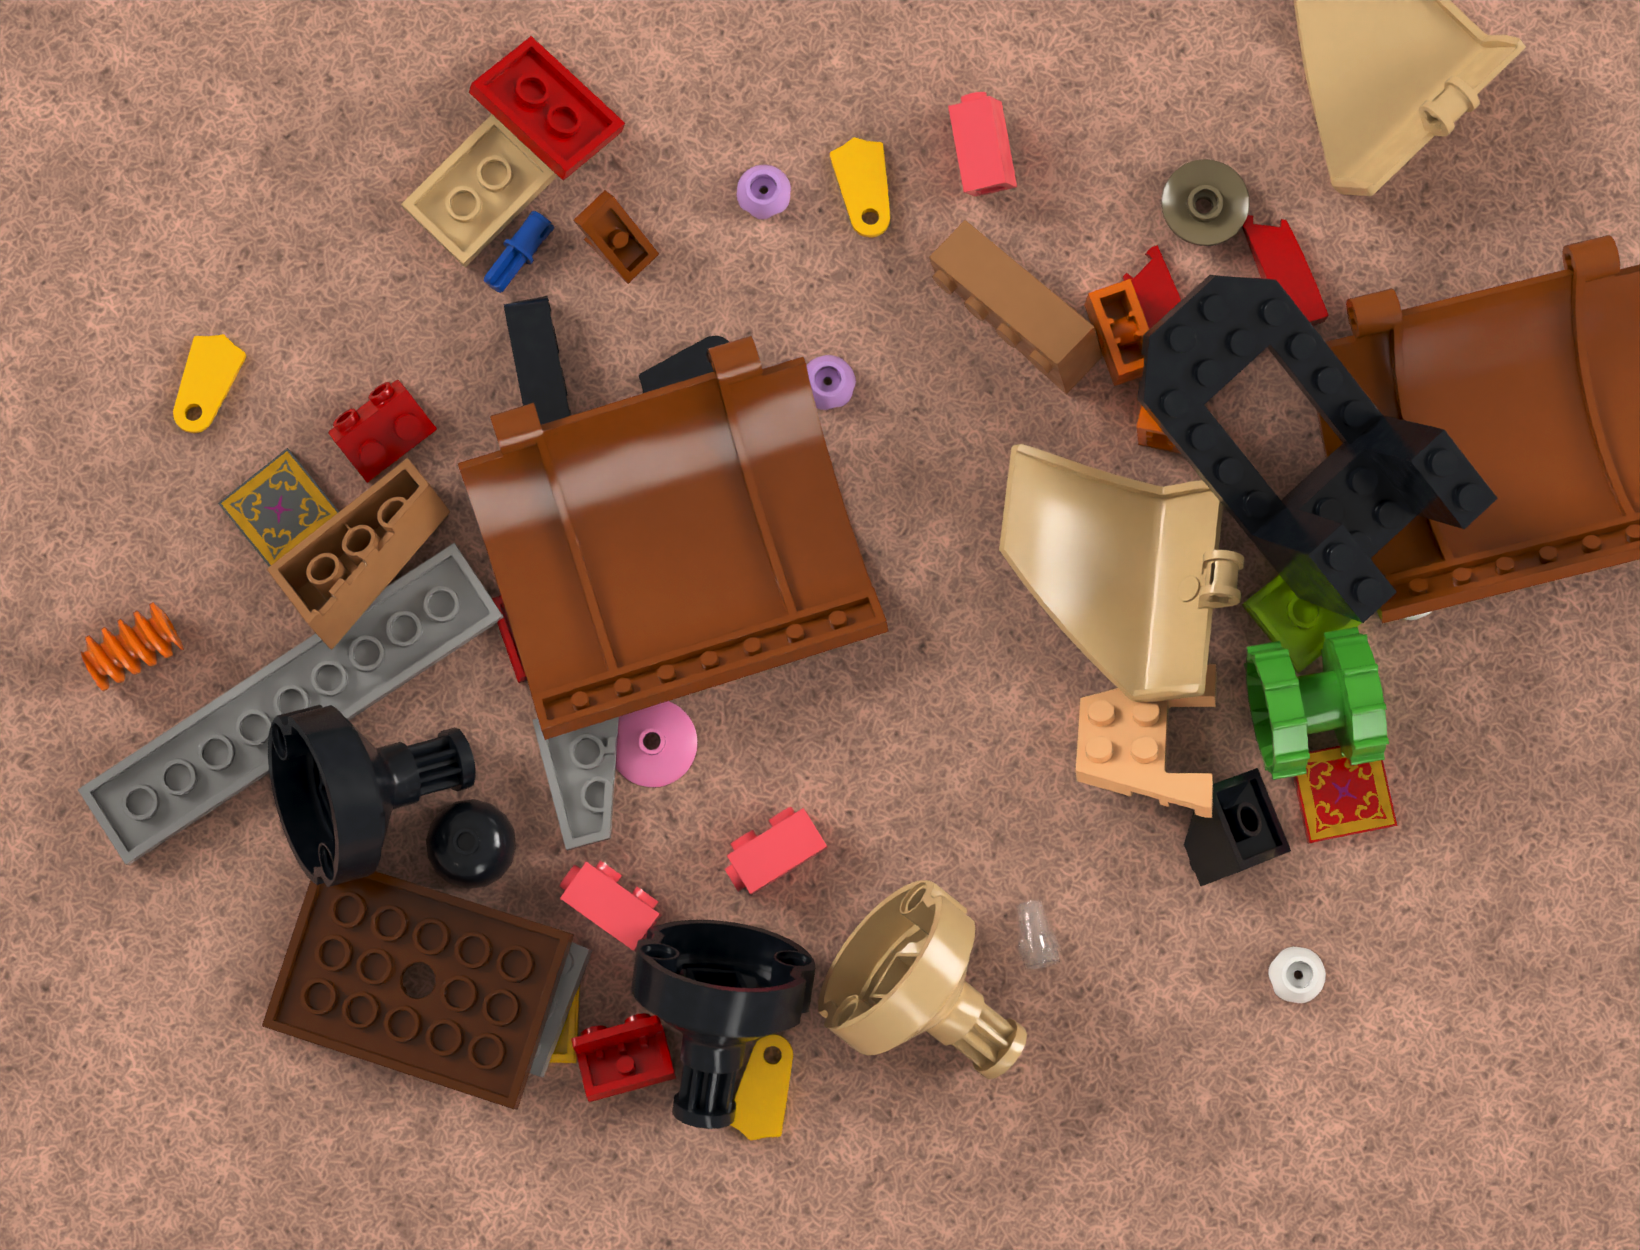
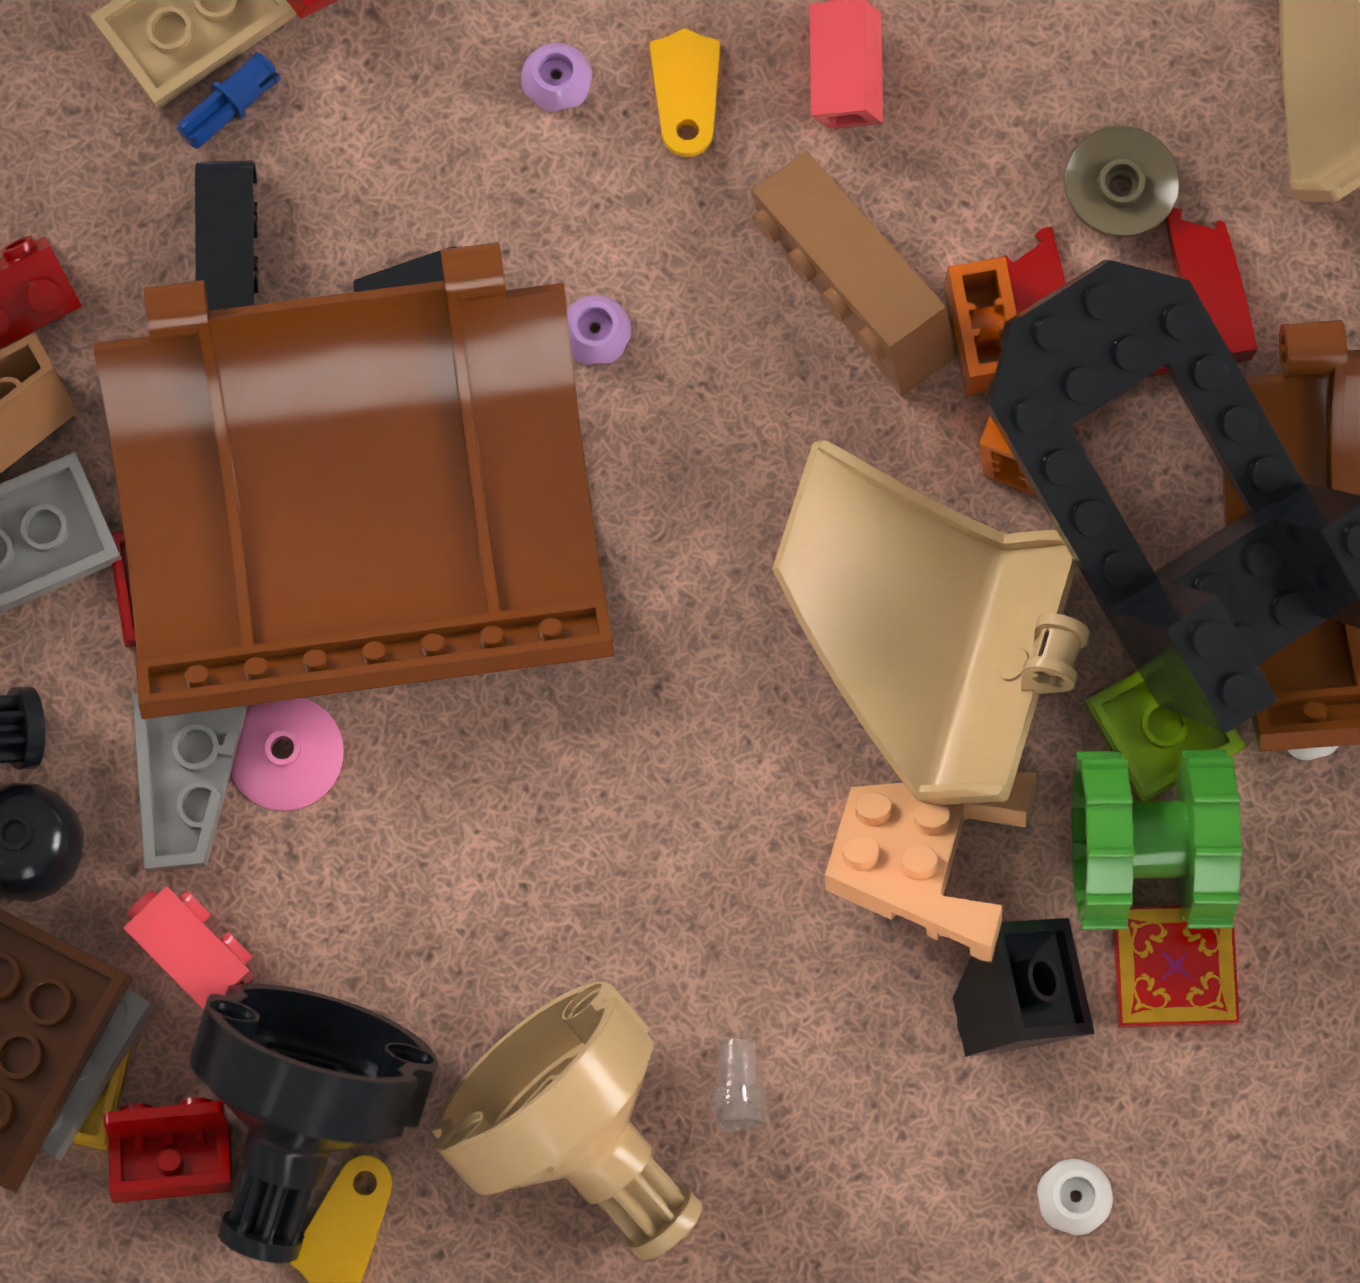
camera: 10 degrees right, 5 degrees down
(615, 237) = (355, 100): dark orange slope -> none
(775, 852) = (415, 918): coral brick -> none

